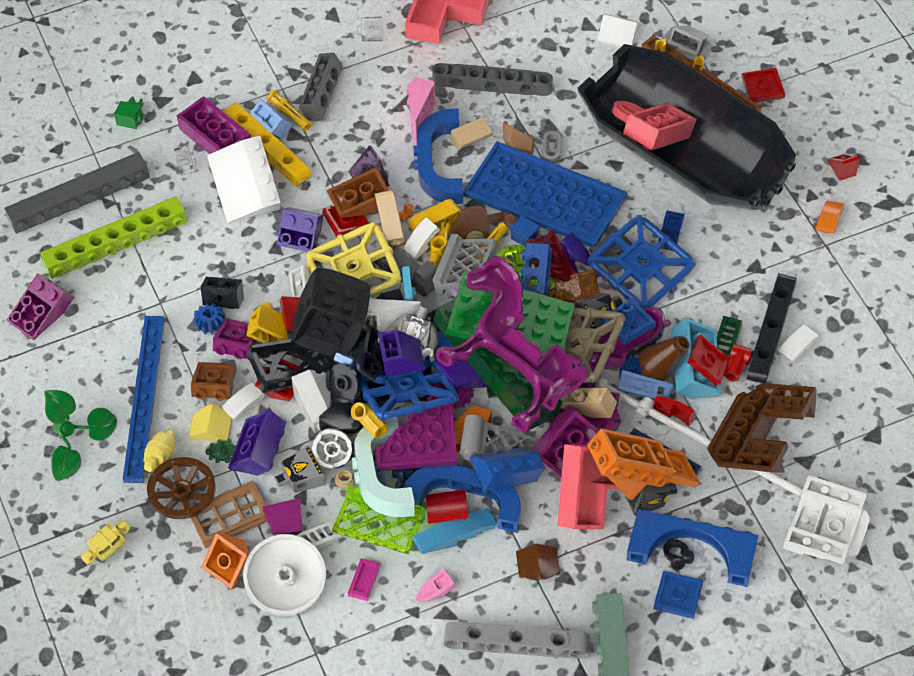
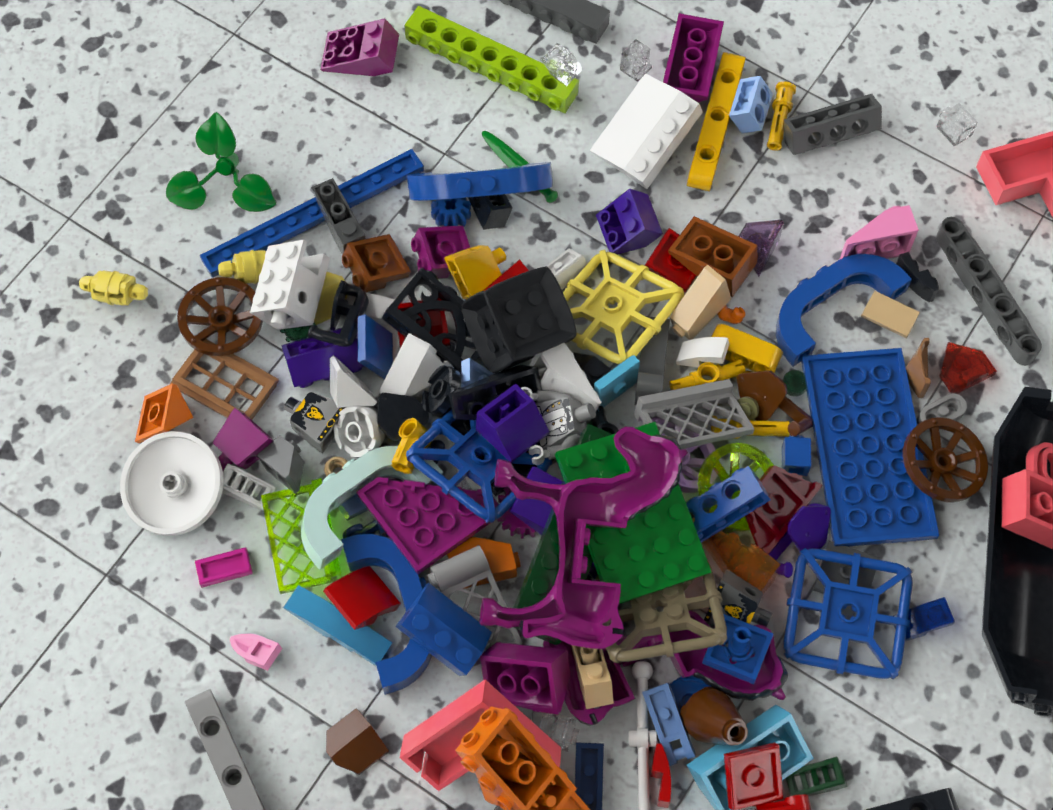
camera: 55 degrees right, 10 degrees up
(163, 194) = (561, 64): none -> clear brick
(166, 382) = (337, 214): none -> dark grey slope
(197, 430) = (289, 286): none -> white torso
(212, 265) = (513, 159): none -> green sword
(229, 260) = (480, 182): none -> blue arch
(234, 405) = (341, 306): none -> black piece
(279, 409) = (374, 346): none -> blue tile
(295, 436) = (347, 388): none -> white slope
(319, 504) = (283, 462): none -> dark grey slope
(465, 105) = (922, 282): none -> black slope
(530, 120) = (964, 367): none -> clear red plate
(583, 164) = (944, 461): none -> reddish brown wheel

